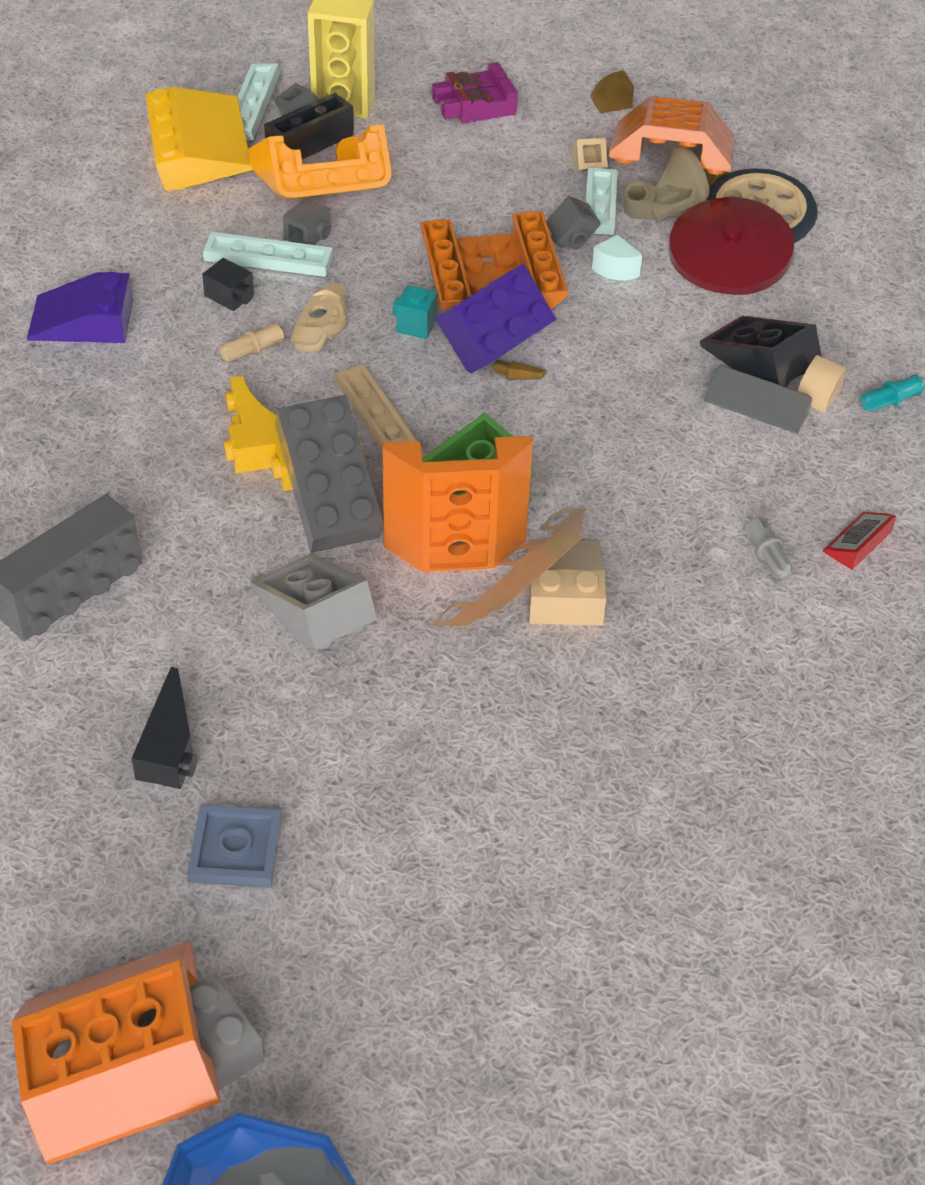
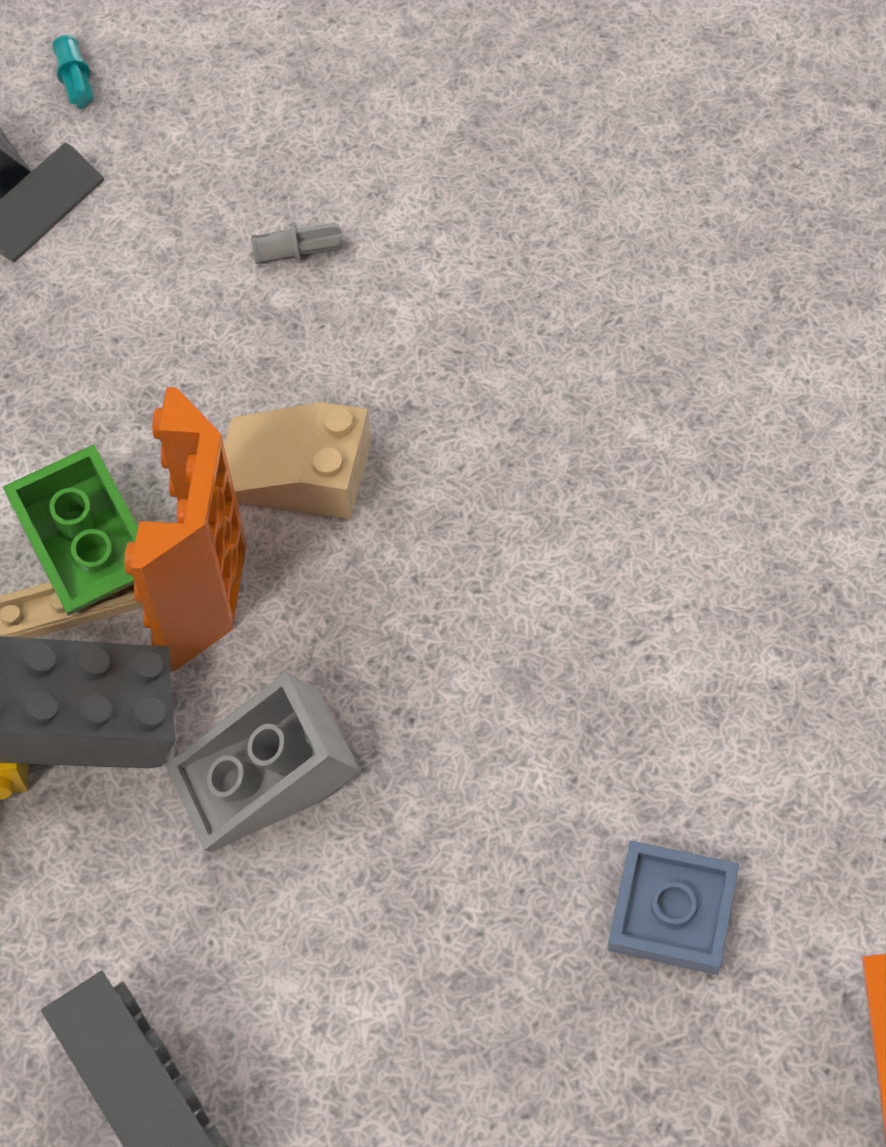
camera: 75 degrees left, 10 degrees up
(165, 746) = (485, 977): black slope -> none
(527, 570) = (312, 494): tan piece -> none
(822, 382) = (35, 129): tan brick -> none
(860, 538) = (299, 153): slope -> none

